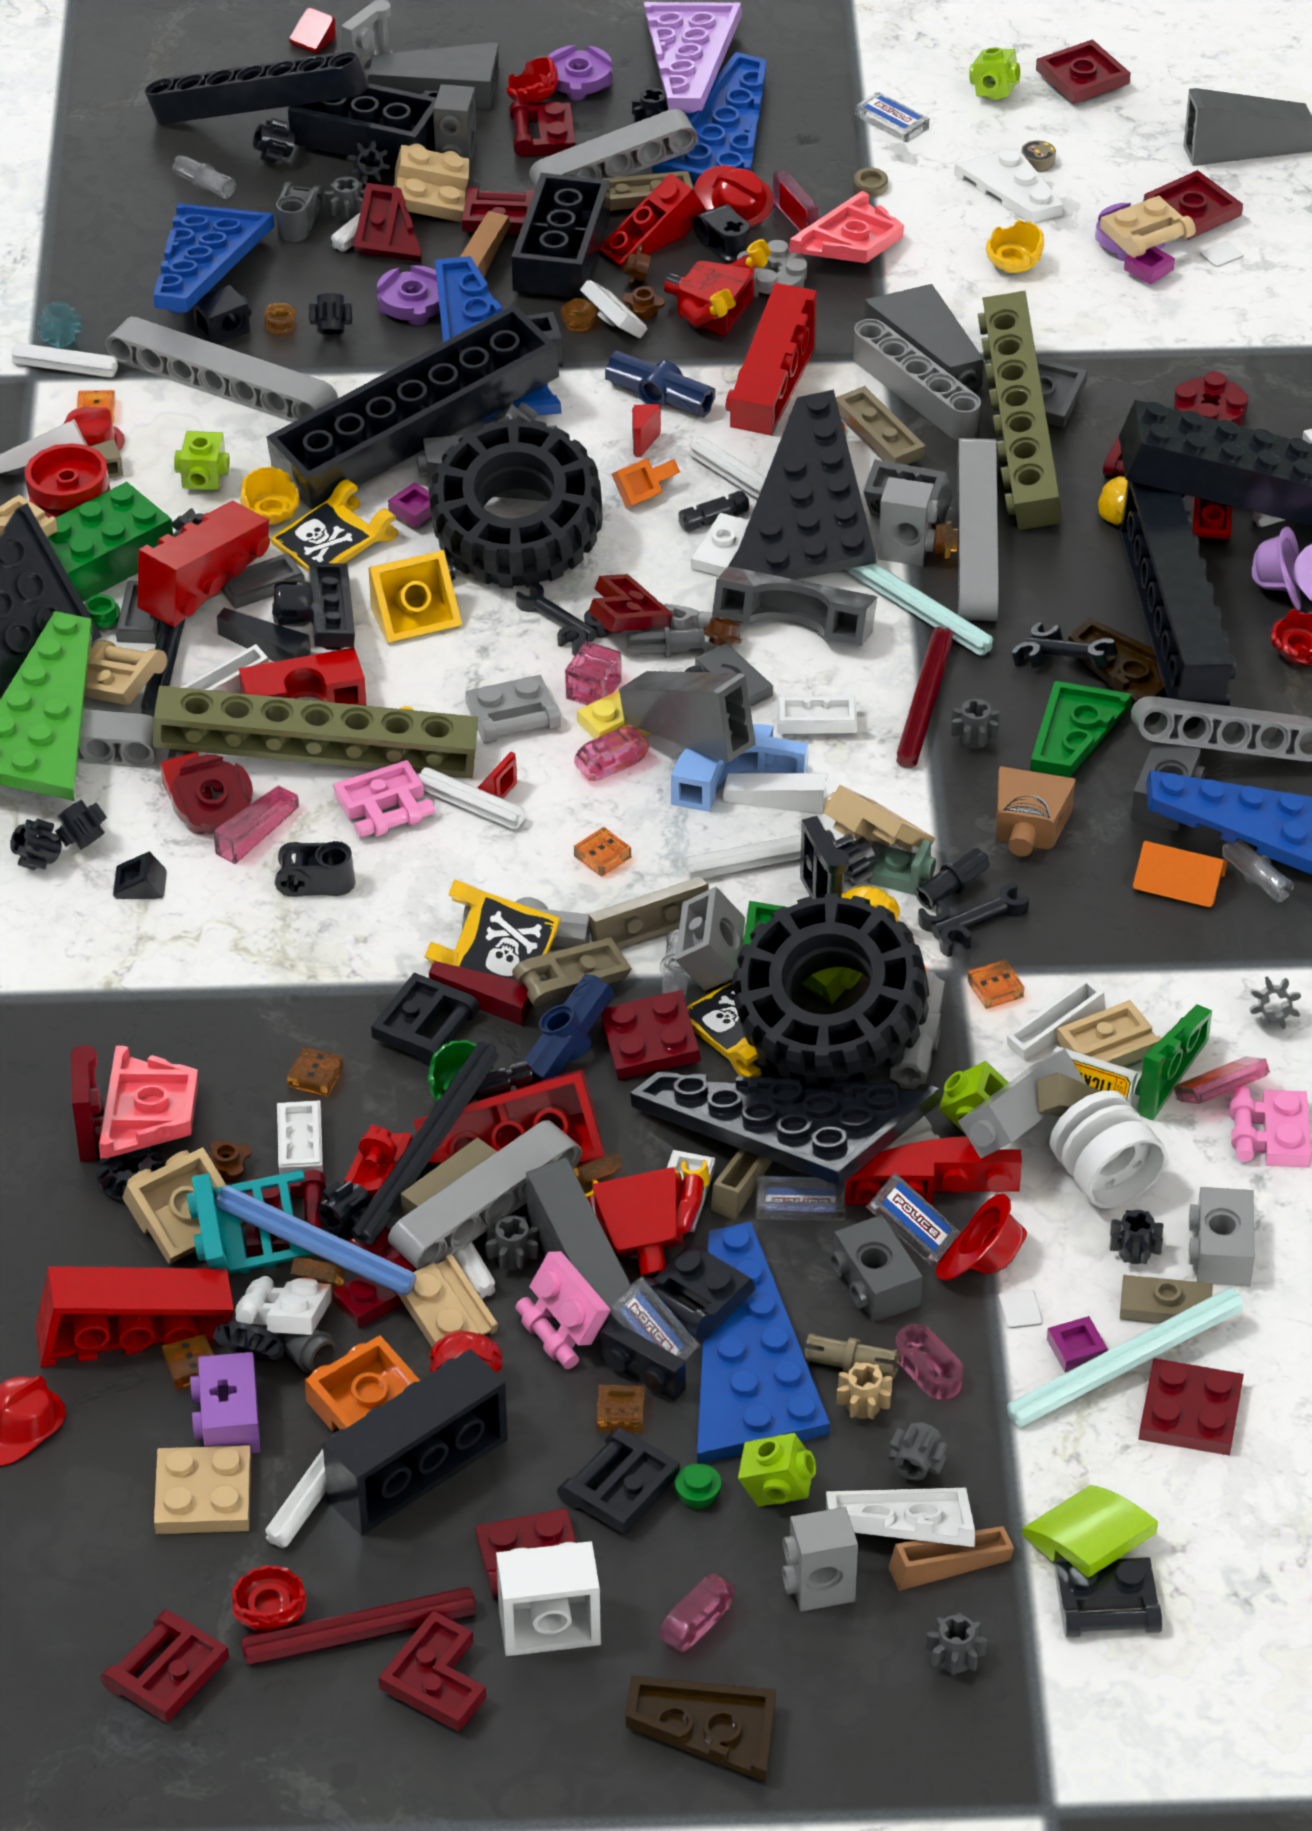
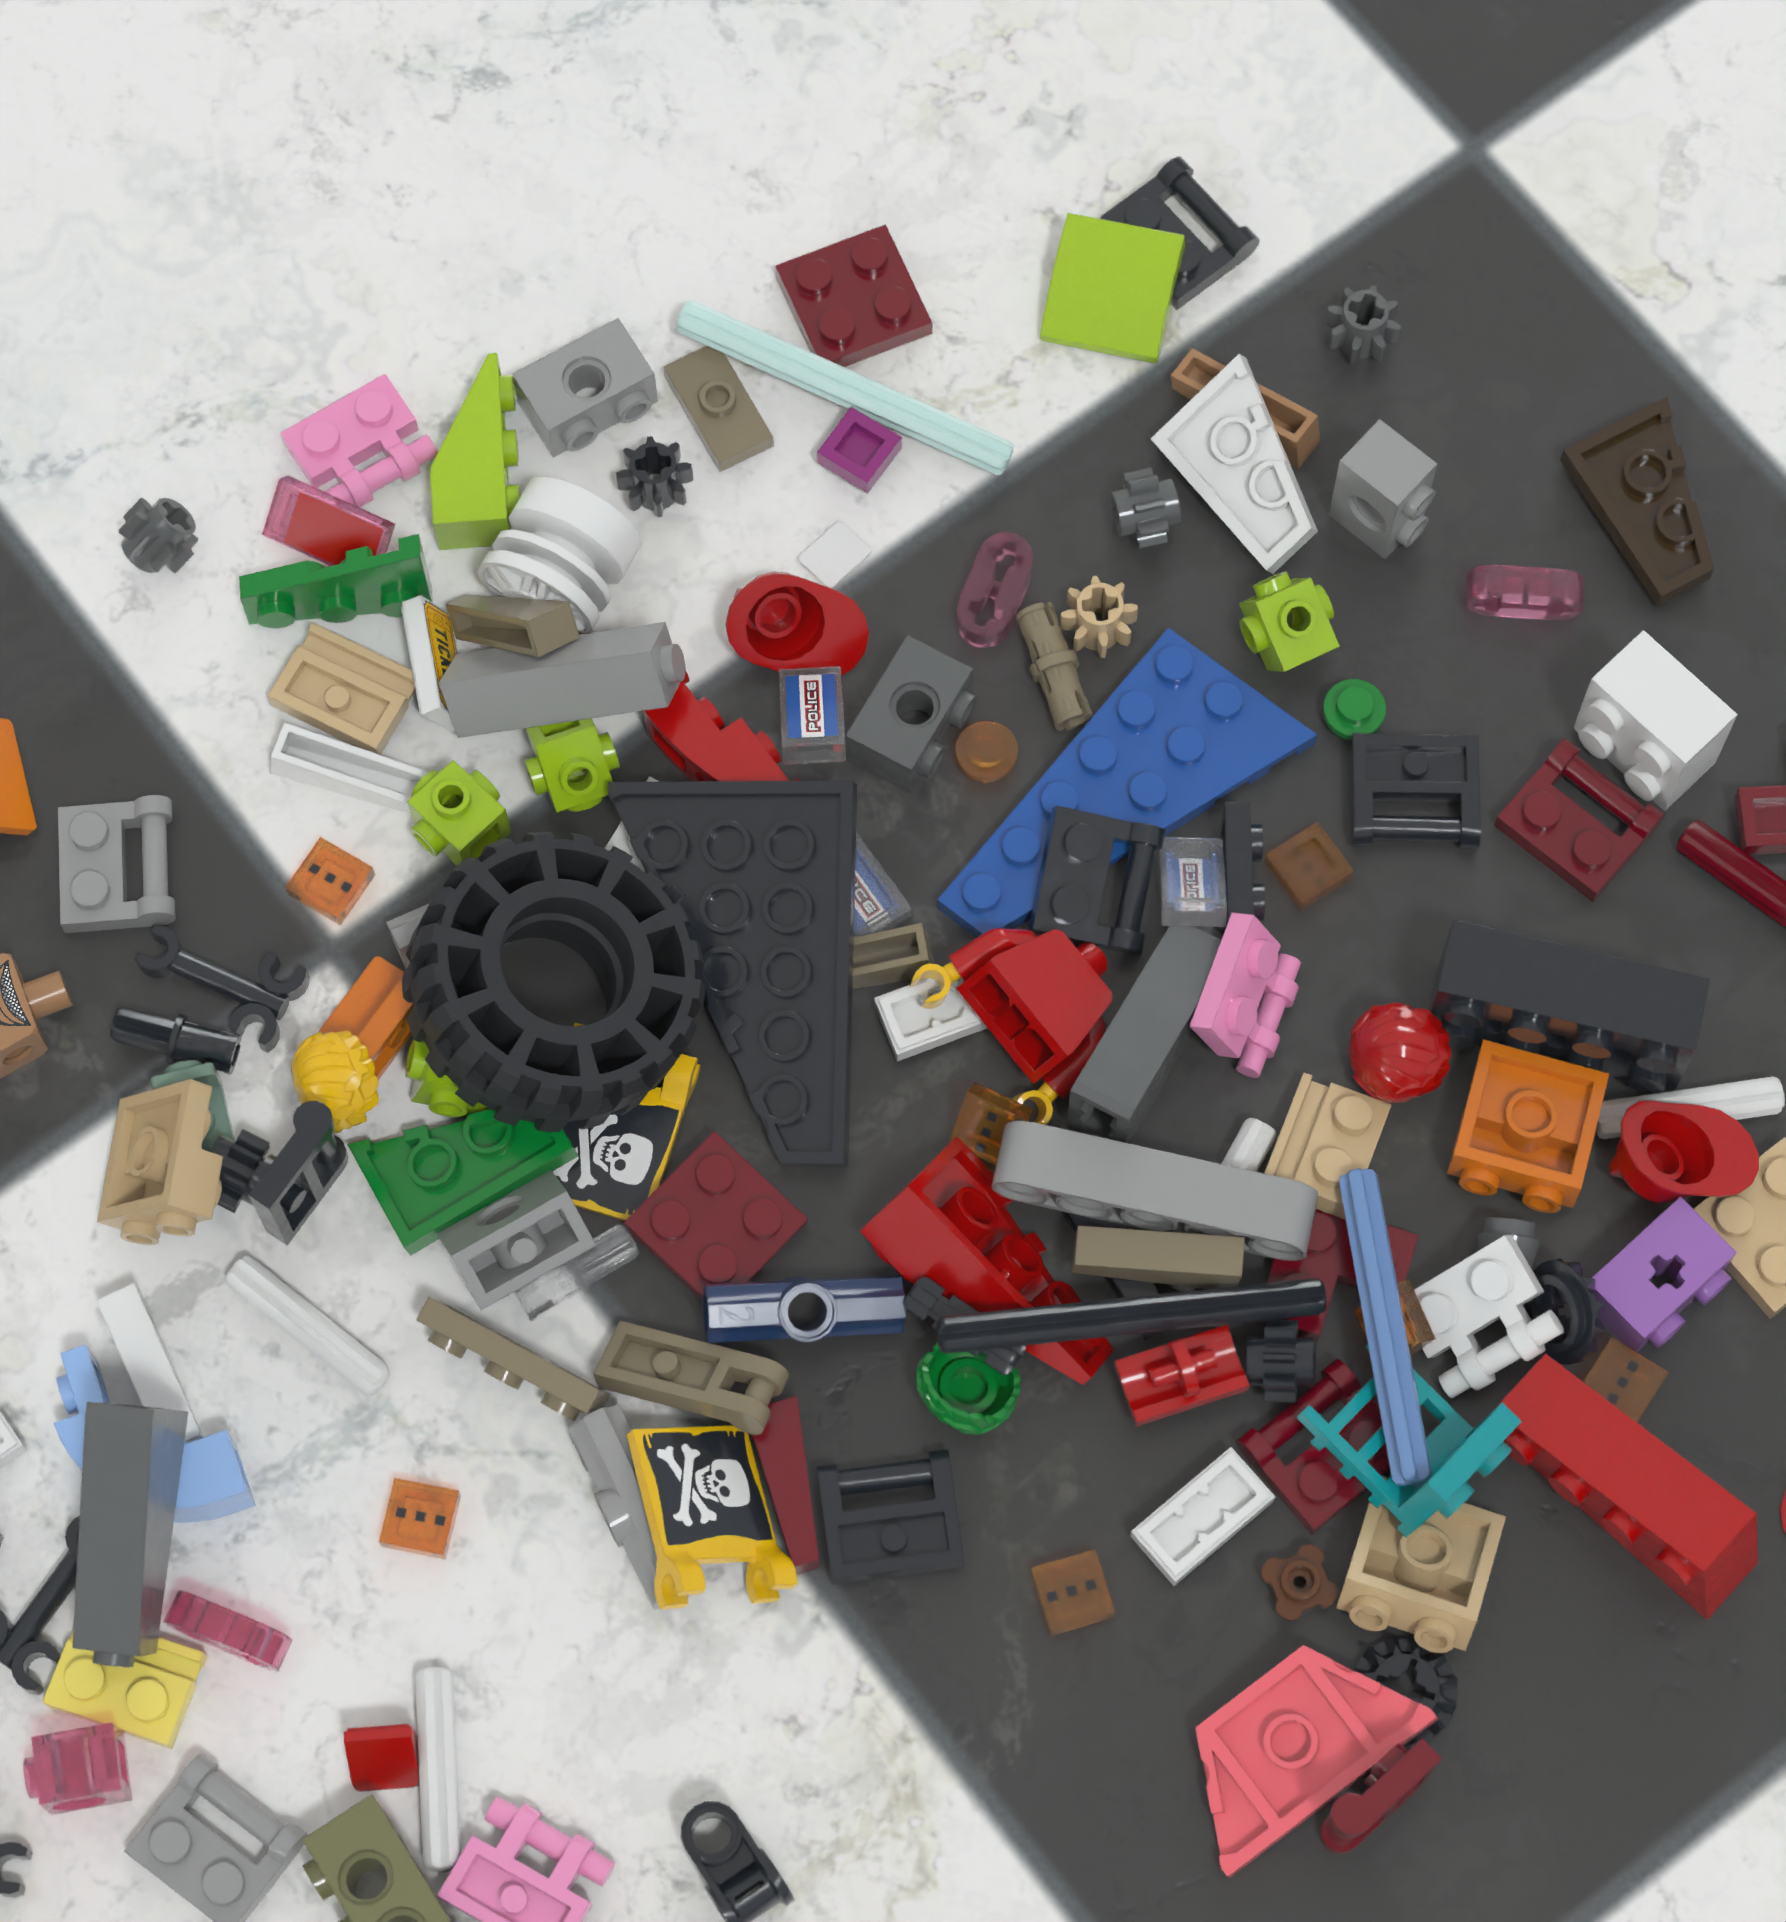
camera: 125 degrees left, 25 degrees up
(281, 1447) = (1683, 1152): none -> red piece
(512, 1242) = (1188, 1123): dark grey gear -> none
(825, 1298) = (986, 751): none -> clear orange plate
(983, 1036) = (457, 813): none -> lime brick
(1083, 904) = (96, 870): none -> light grey plate
(1208, 1157) = (472, 465): none -> lime slope

